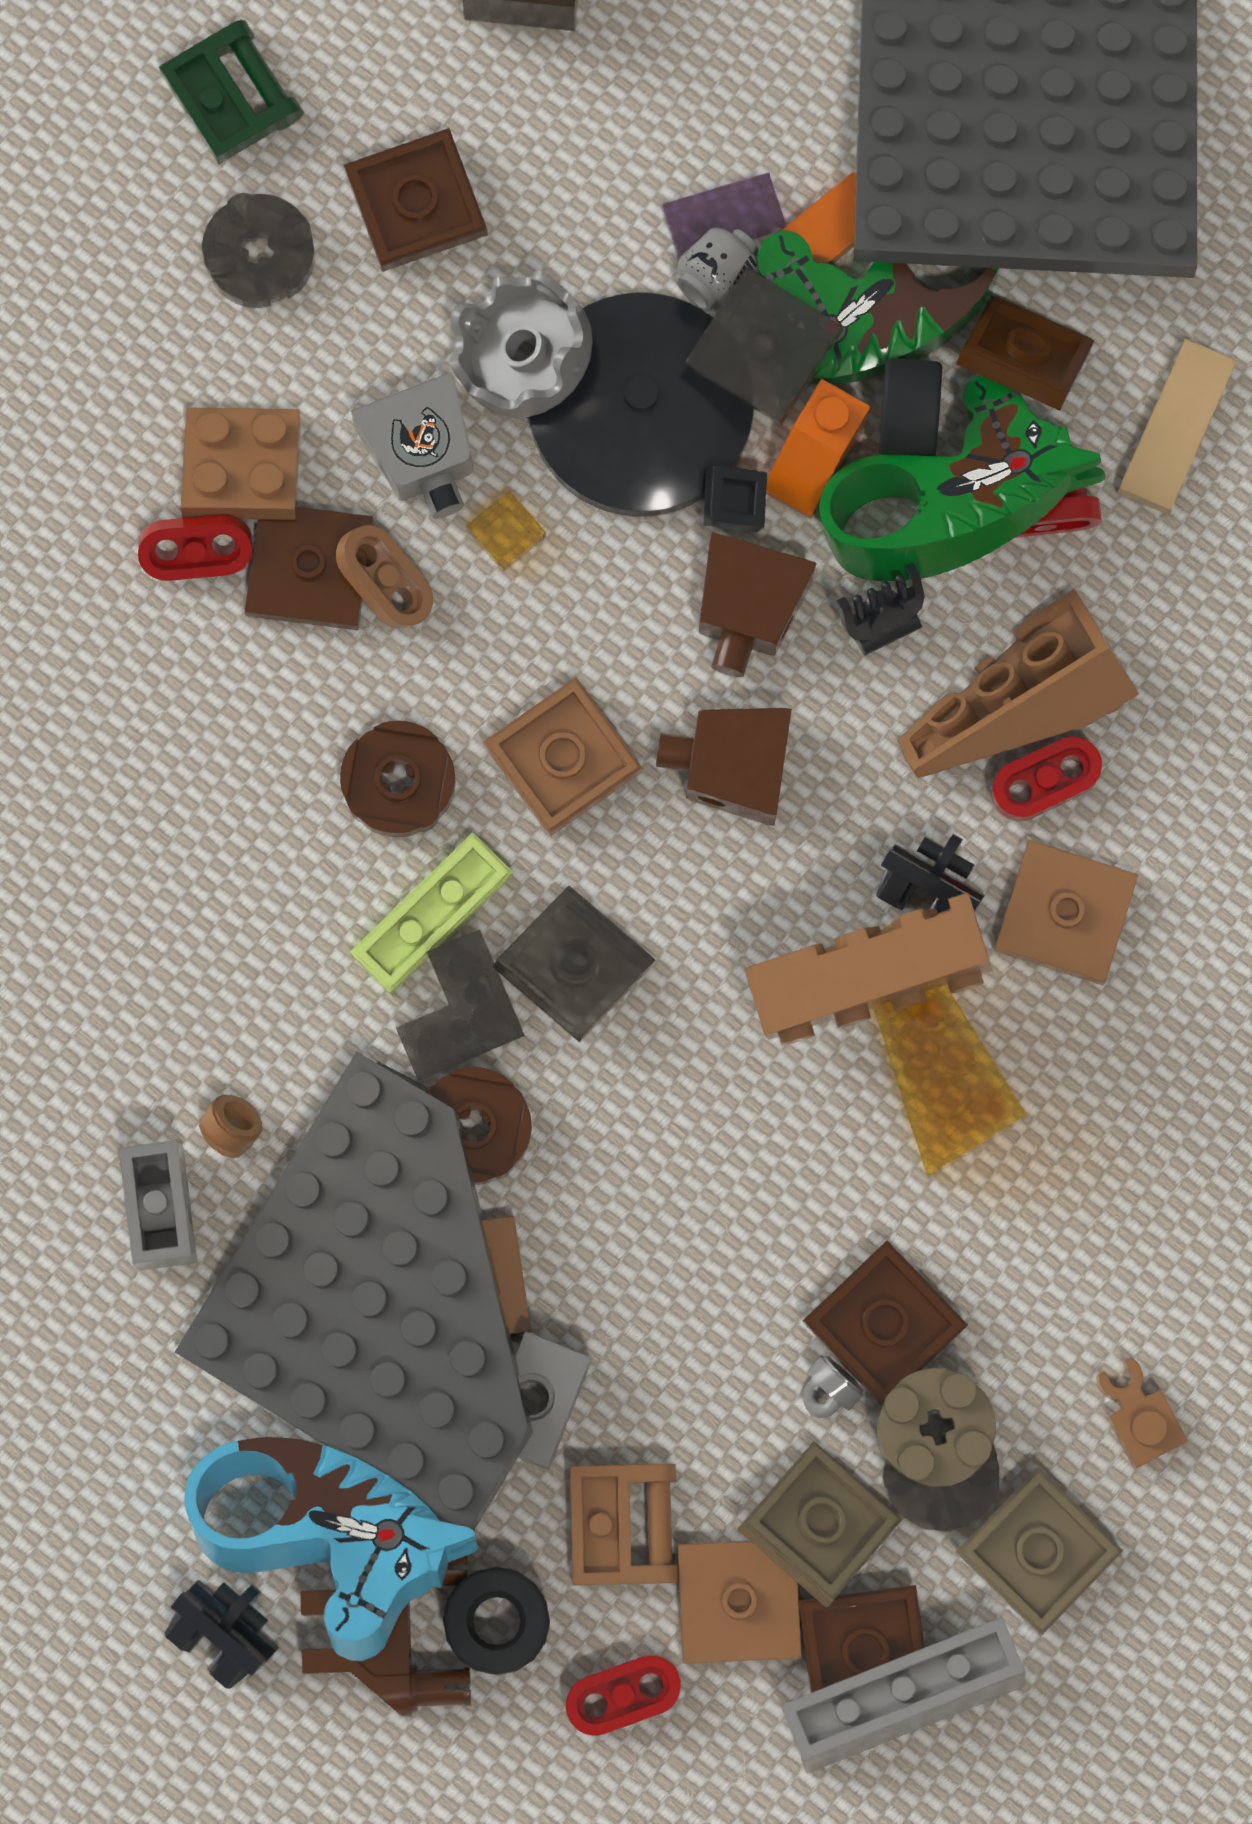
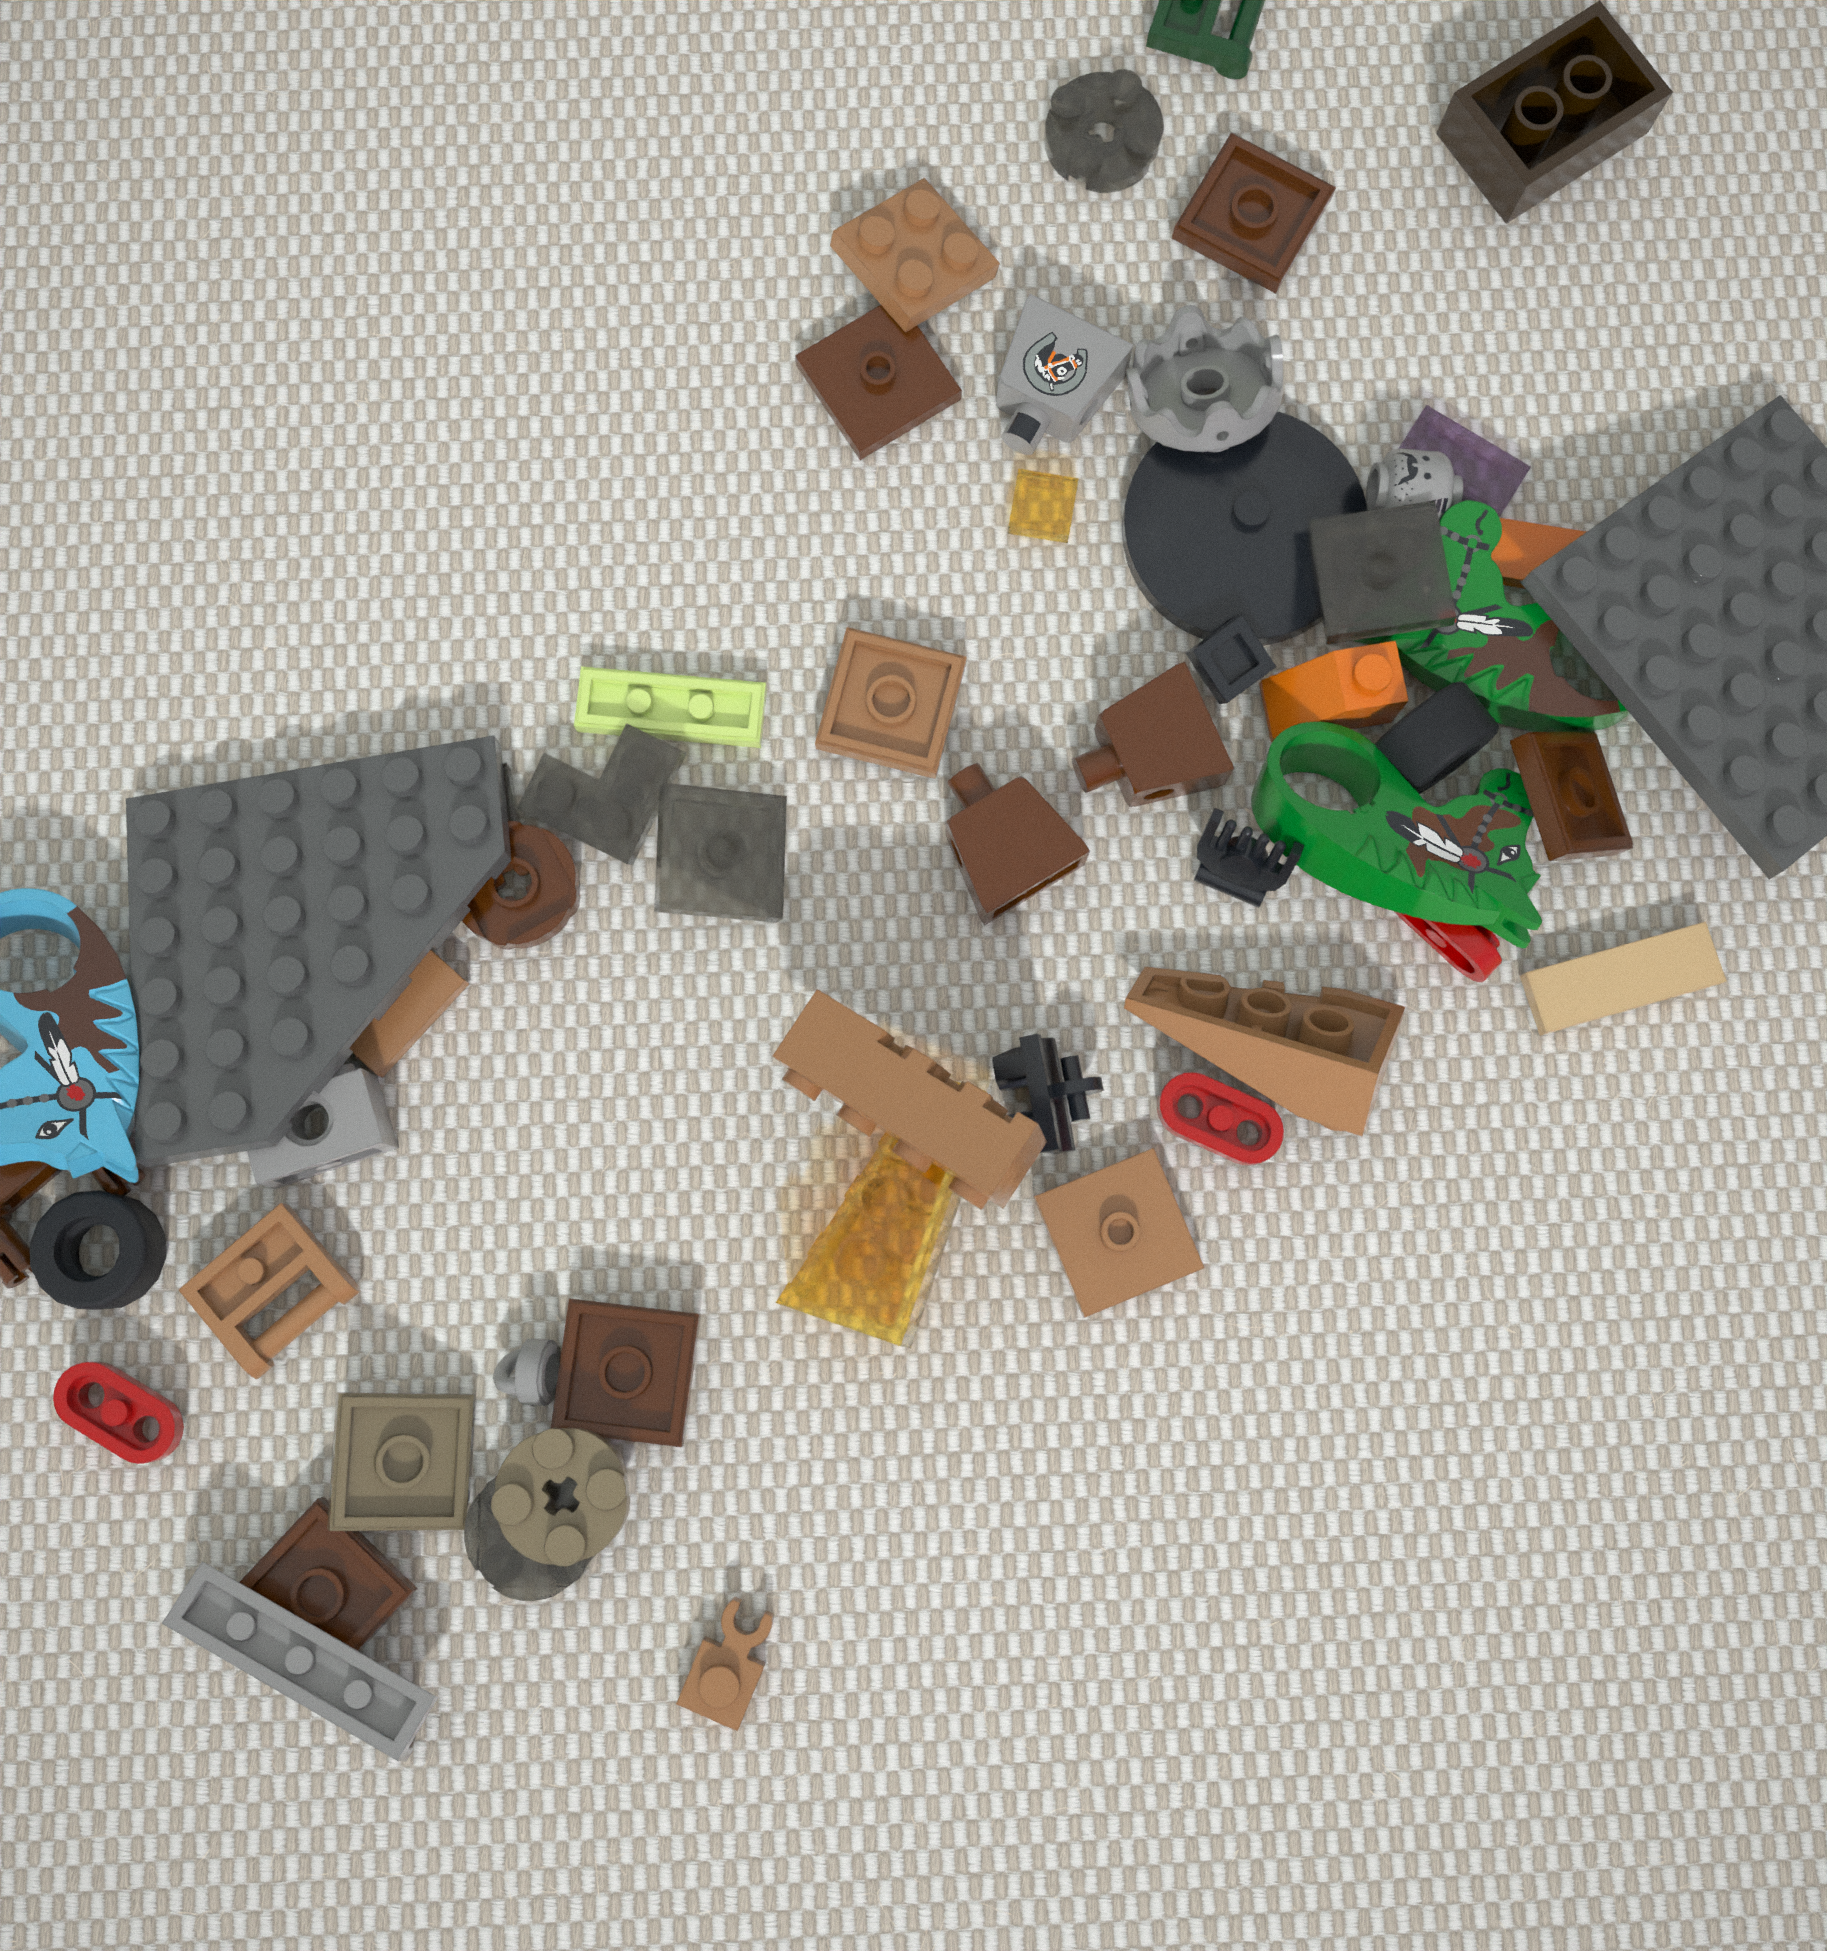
camera: 50 degrees right, 0 degrees up
(158, 1205) = (230, 681): light grey brick -> none
(196, 550) = (815, 279): red plate -> none
(230, 1125) = (355, 688): medium nougat tile -> none
(377, 753) = (770, 554): reddish brown plate -> none
(385, 573) = (921, 438): medium nougat plate -> none
(736, 1604) = (274, 1444): medium nougat plate -> none
(1039, 1551) = (531, 1677): dark tan plate -> none

